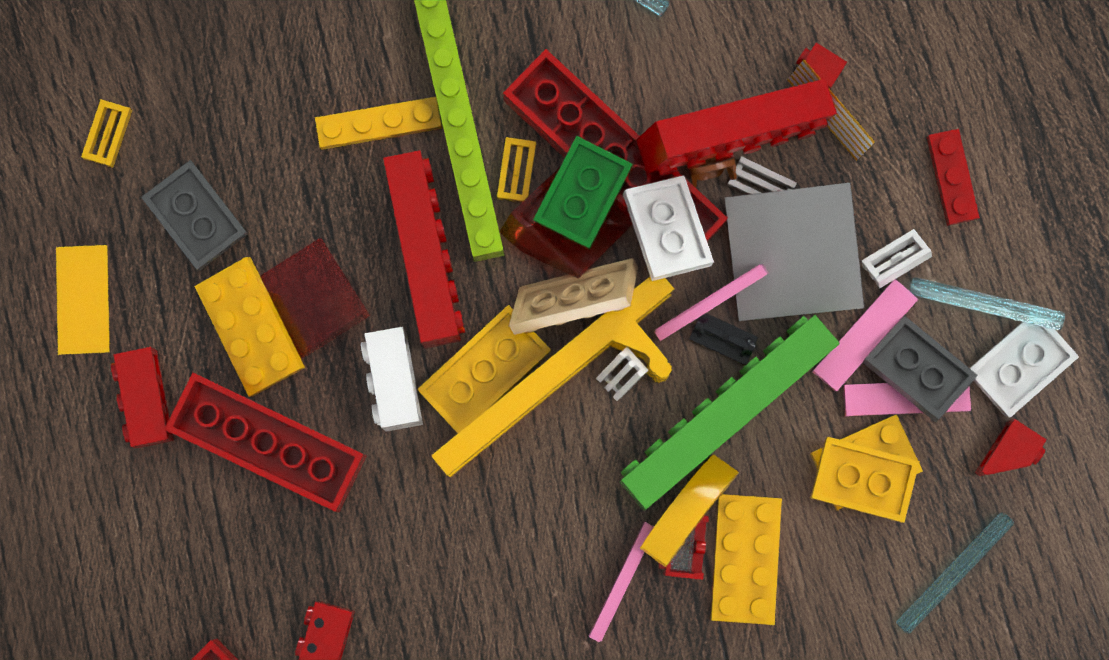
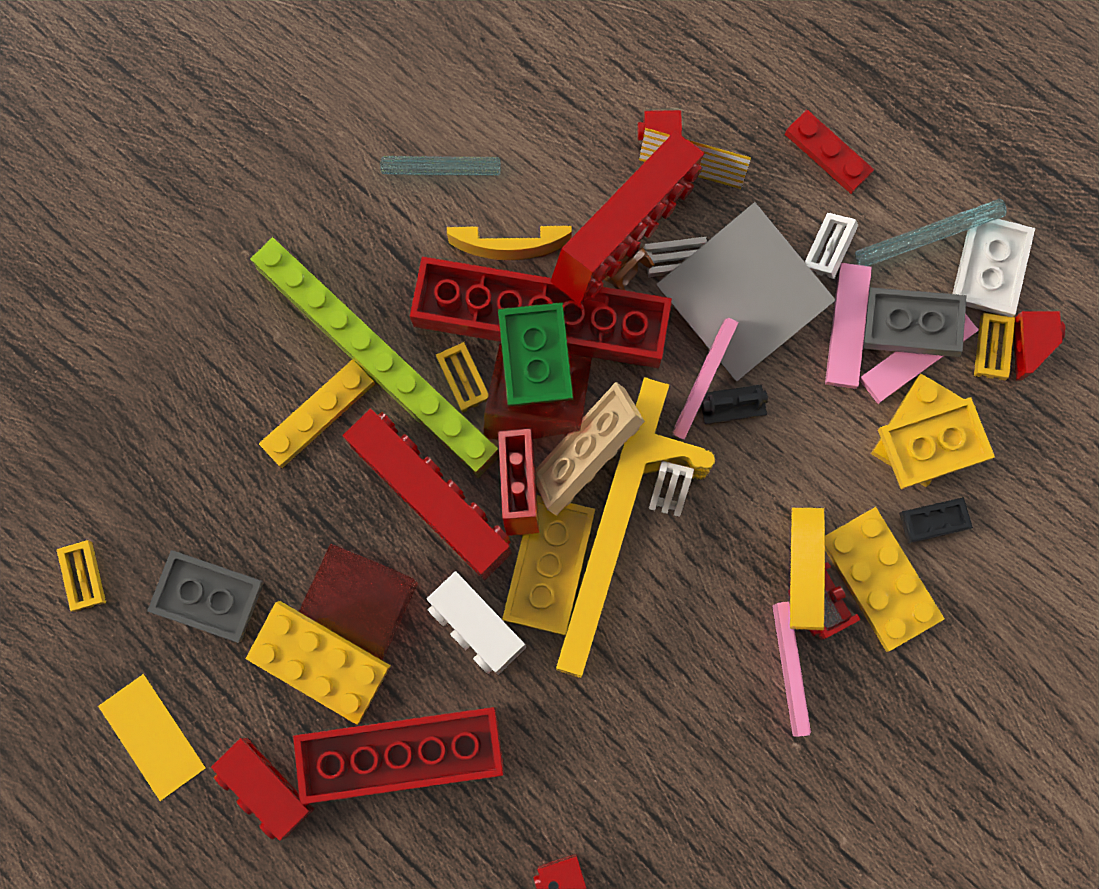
camera: 30 degrees left, 5 degrees down
(501, 287) = (518, 482): none -> red brick
(664, 101) = (469, 241): none -> yellow slope
(668, 228) = (629, 337): white plate -> none
(736, 405) = (783, 464): bright green brick -> none
(823, 542) = (935, 520): none -> black plate
(955, 572) = (1061, 474): clear light blue axle -> none
(957, 452) = (990, 371): none -> yellow tile

